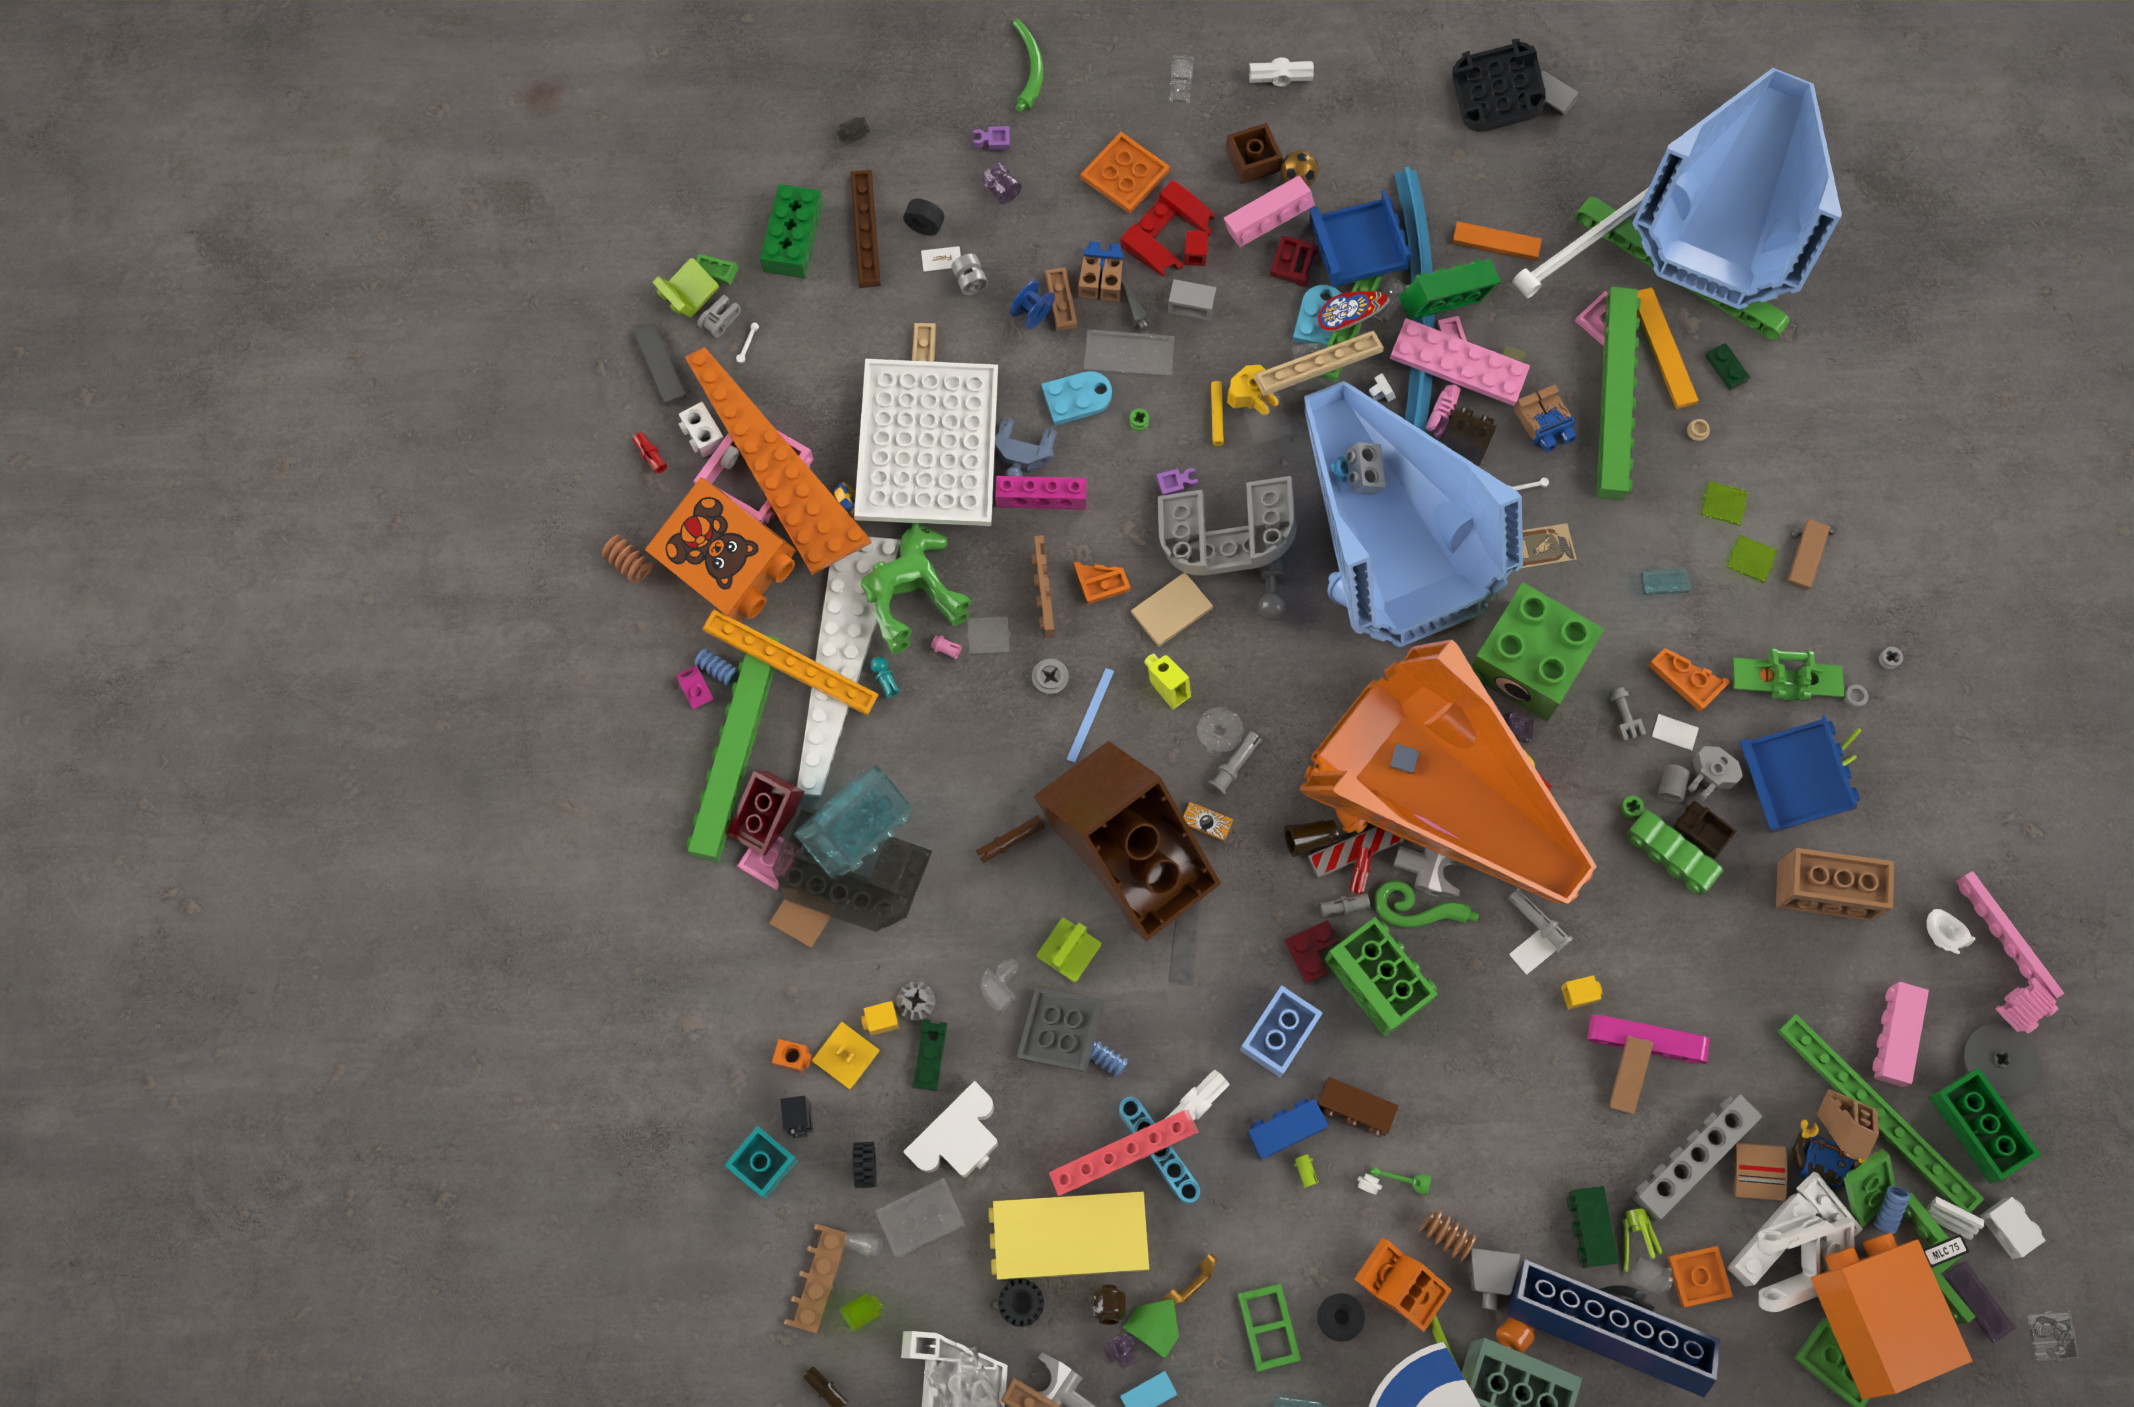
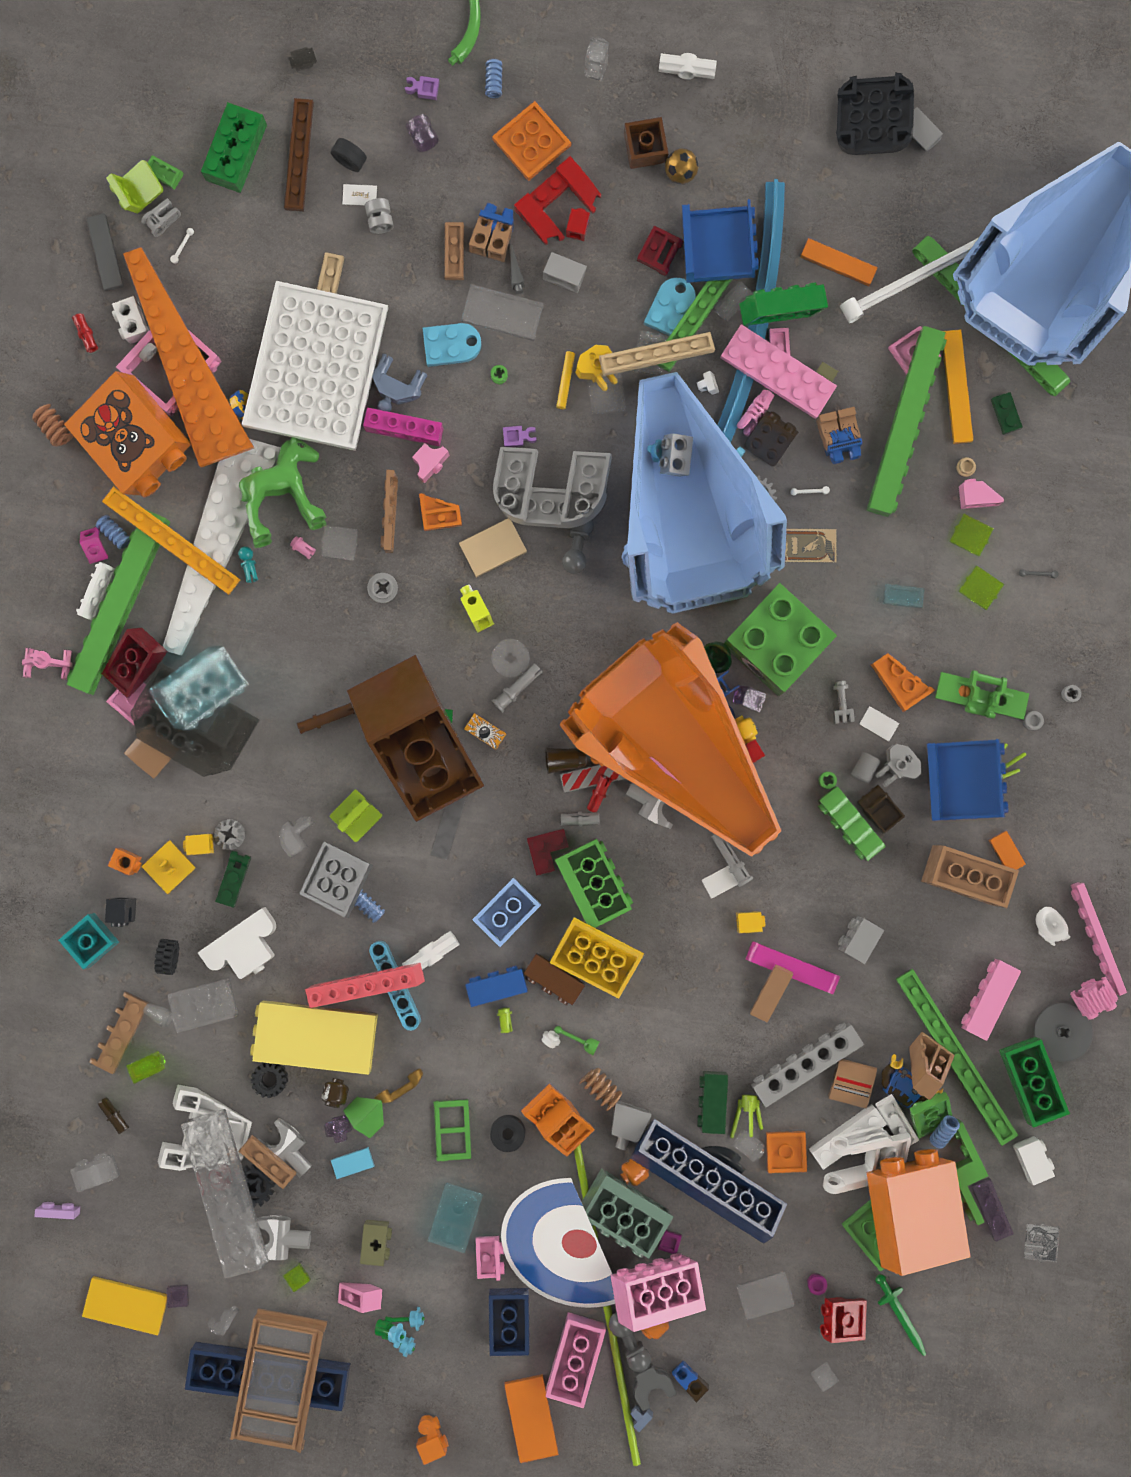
camera: 10 degrees right, 15 degrees up
(656, 827) = (43, 660): none -> bright pink axle
(706, 737) = (96, 591): none -> white plate
(1032, 304) = (426, 254): blue piece -> none
(1070, 117) = (494, 78): none -> medium blue piece
(1078, 525) = (429, 461): none -> bright pink brick
(1089, 717) = (410, 624): light blue sticker -> none
(1269, 211) = (647, 202): bright pink brick -> none
(1350, 309) = (694, 309): shield -> none
(1404, 759) = (652, 711): sand blue tile -> none
(1406, 1063) = (596, 957): none -> yellow slope
(1450, 910) = (664, 839): bright green plant -> none
(1721, 457) = (978, 494): none -> bright pink slope
(1723, 986) = (860, 939): none -> light grey brick
(1808, 554) = (1028, 593): medium nougat tile -> none
(1863, 846) = (1007, 851): none -> orange tile
(1946, 1250) = (976, 1170): sticker -> none
(1954, 1218) = (990, 1145): white tile -> none

